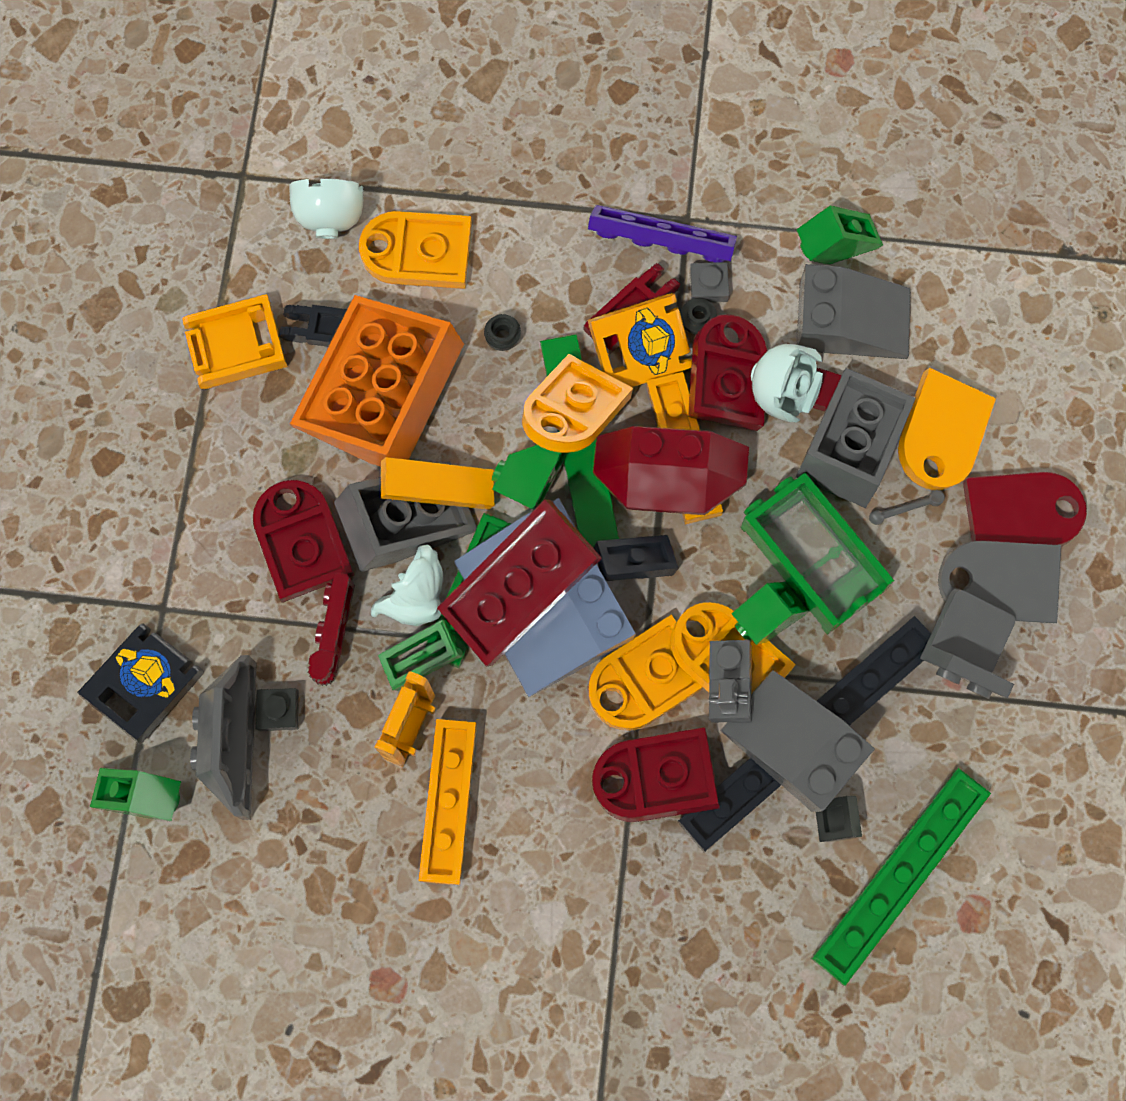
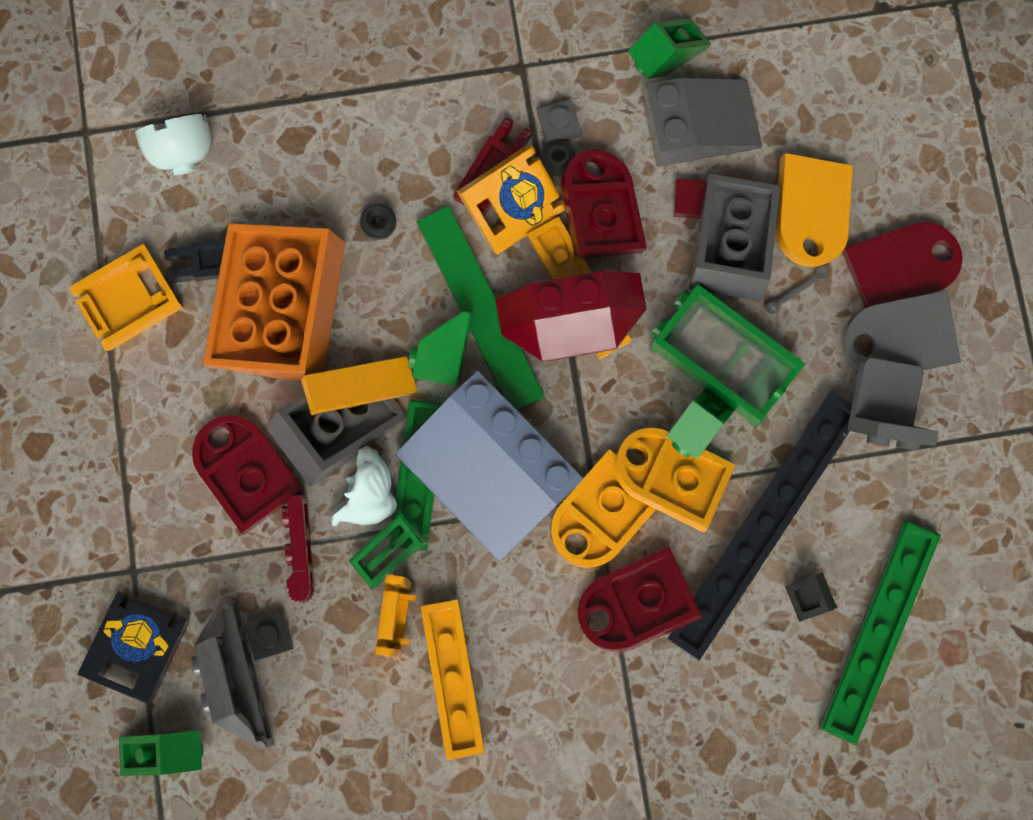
camera: 15 degrees left, 5 degrees up
(420, 249) = (277, 160): light orange tile -> none
(519, 582) = (463, 460): dark red plate -> none
(574, 401) = (466, 273): light orange tile -> none
(636, 558) = (562, 405): black hinge -> none
(649, 230) = (513, 86): dark purple plate -> none
(730, 681) = (681, 499): dark grey hinge -> none
(787, 381) = (658, 201): light aqua cylinder -> none
(799, 742) = (757, 538): dark grey slope -> none

